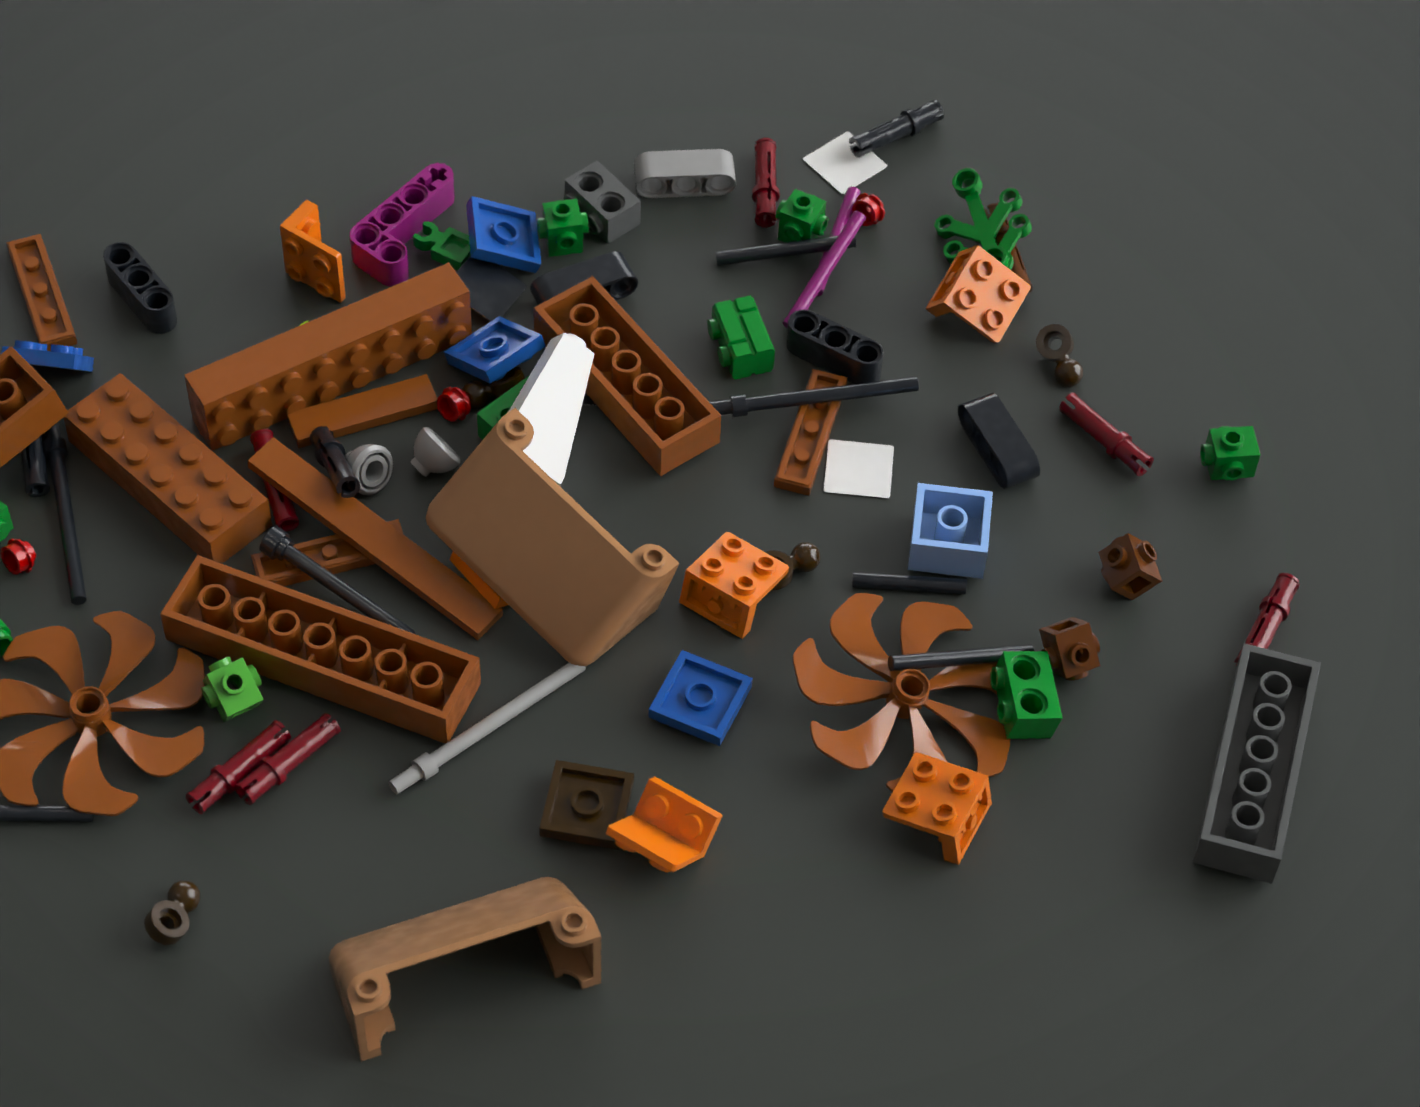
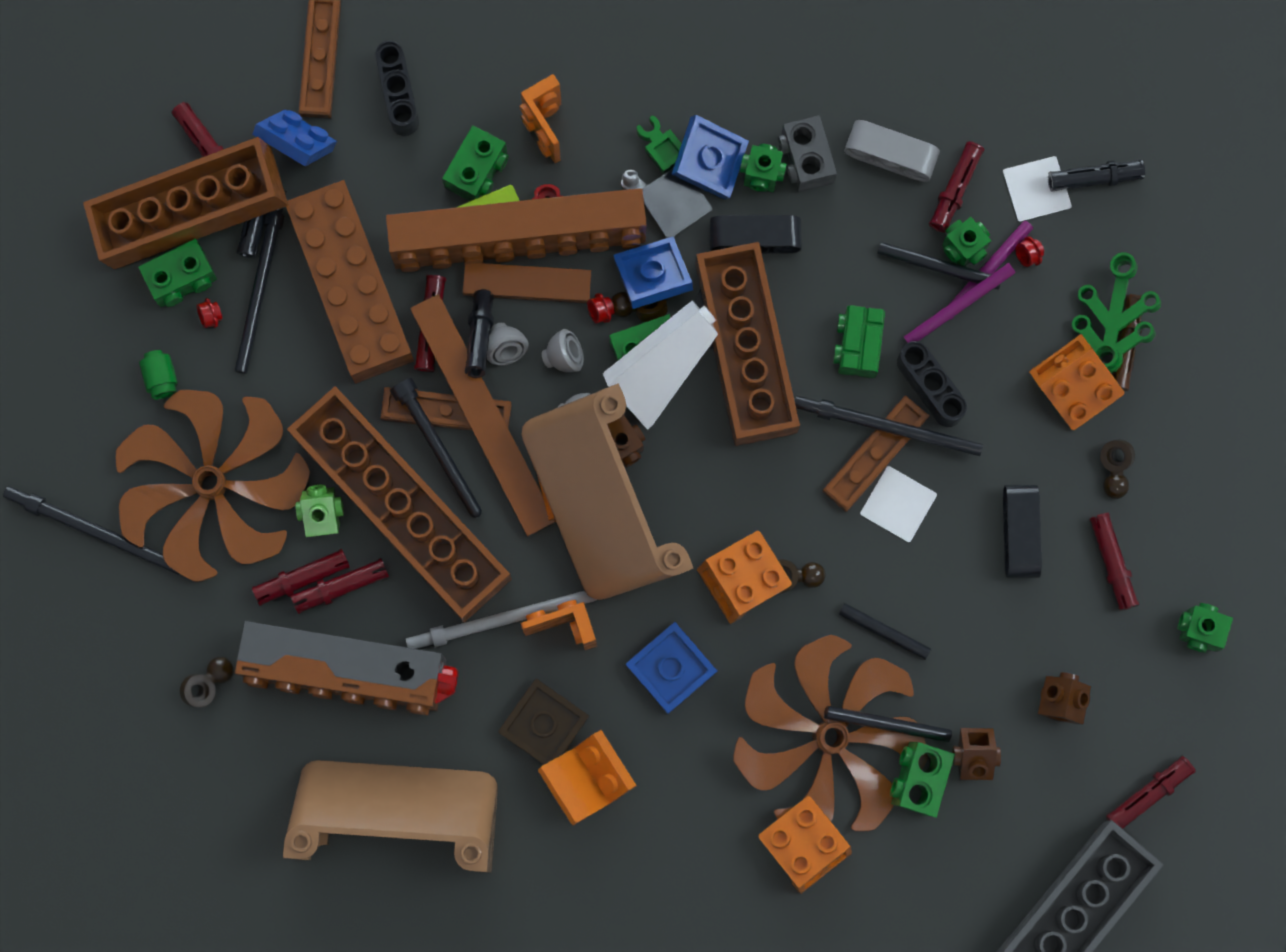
camera: 25 degrees right, 25 degrees up
(257, 316) = (475, 165): none -> green brick
(332, 823) = (344, 668): none -> piece
(381, 235) = (641, 107): magenta beam -> none
(566, 677) = (566, 612): none -> orange bracket
(950, 530) = (936, 605): light blue brick -> none

